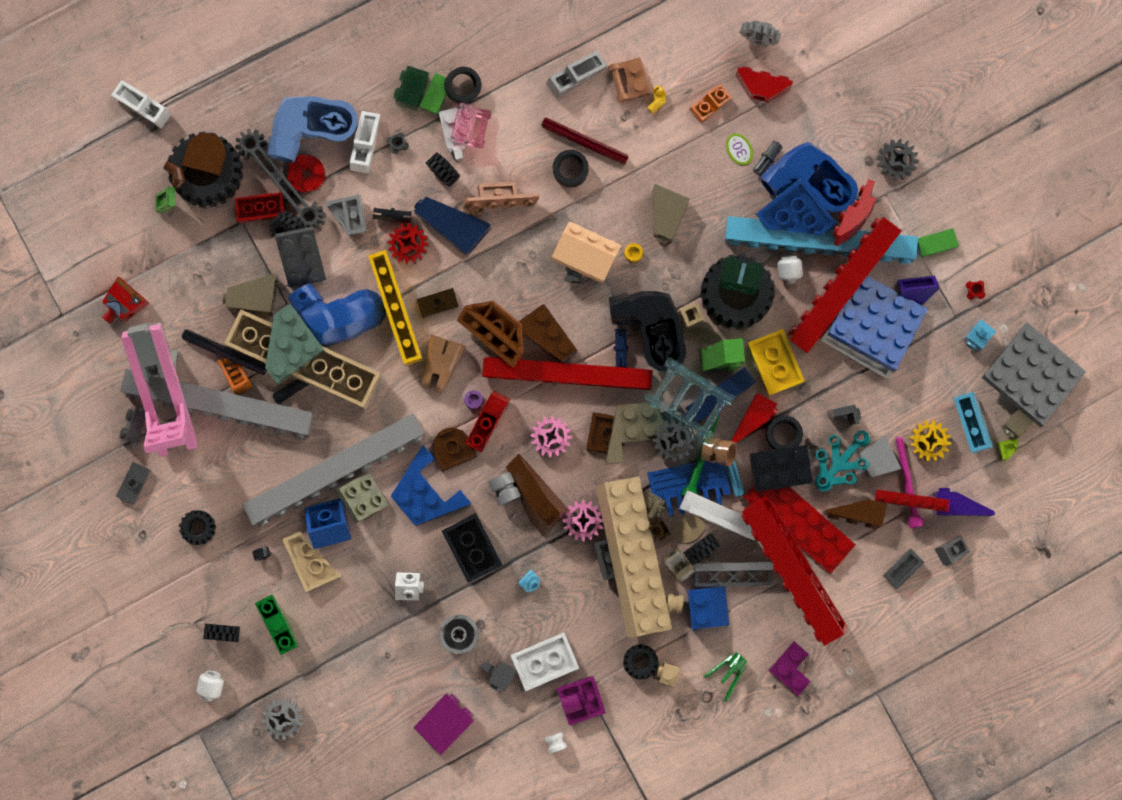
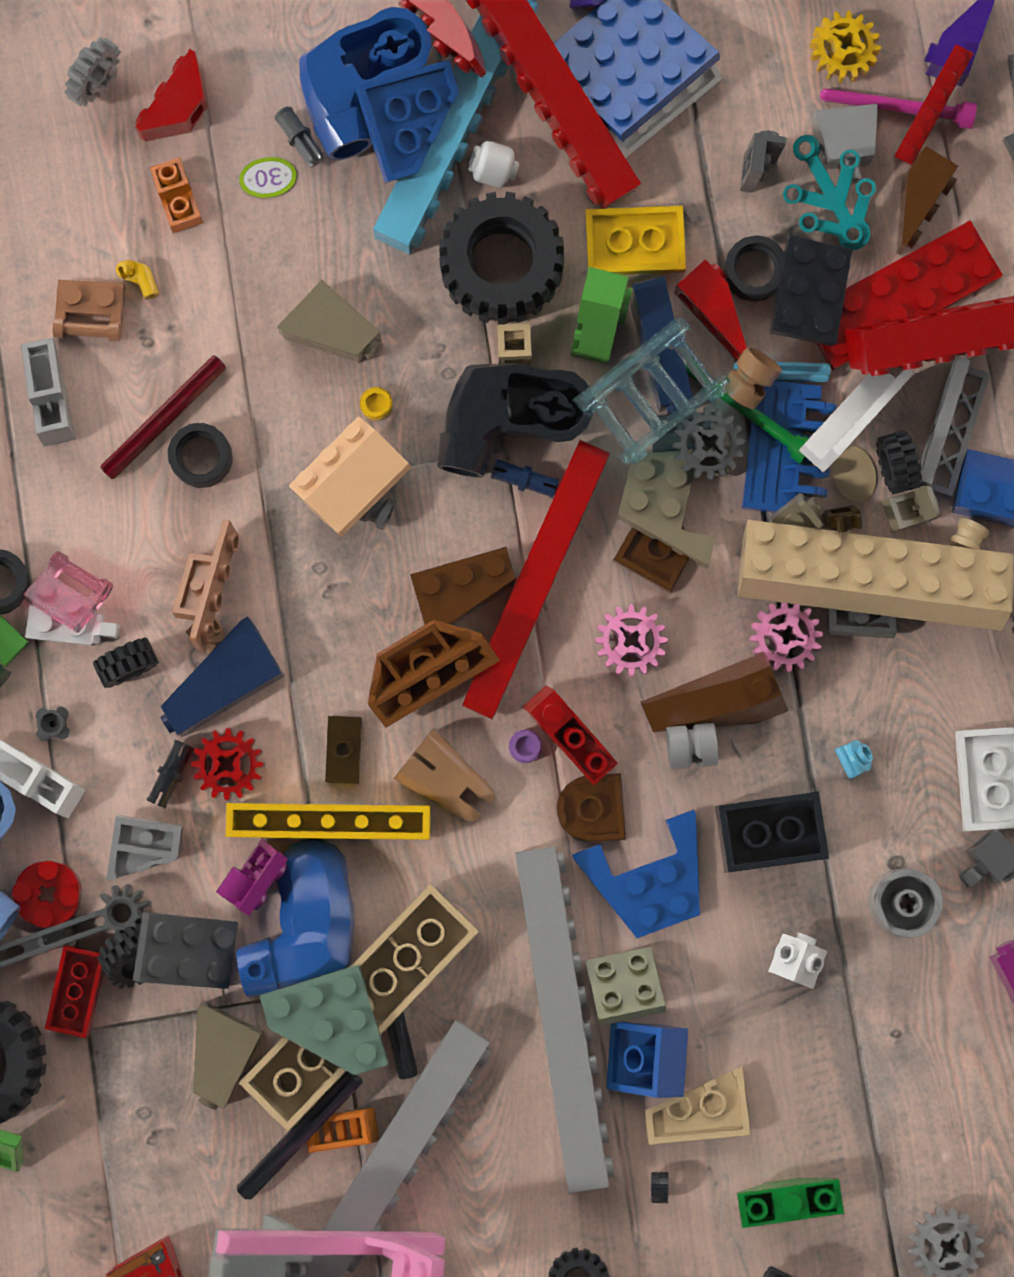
camera: 70 degrees left, 0 degrees up
(345, 276) = (249, 885): none -> magenta plate
(740, 276) = (484, 235): clear green container -> none

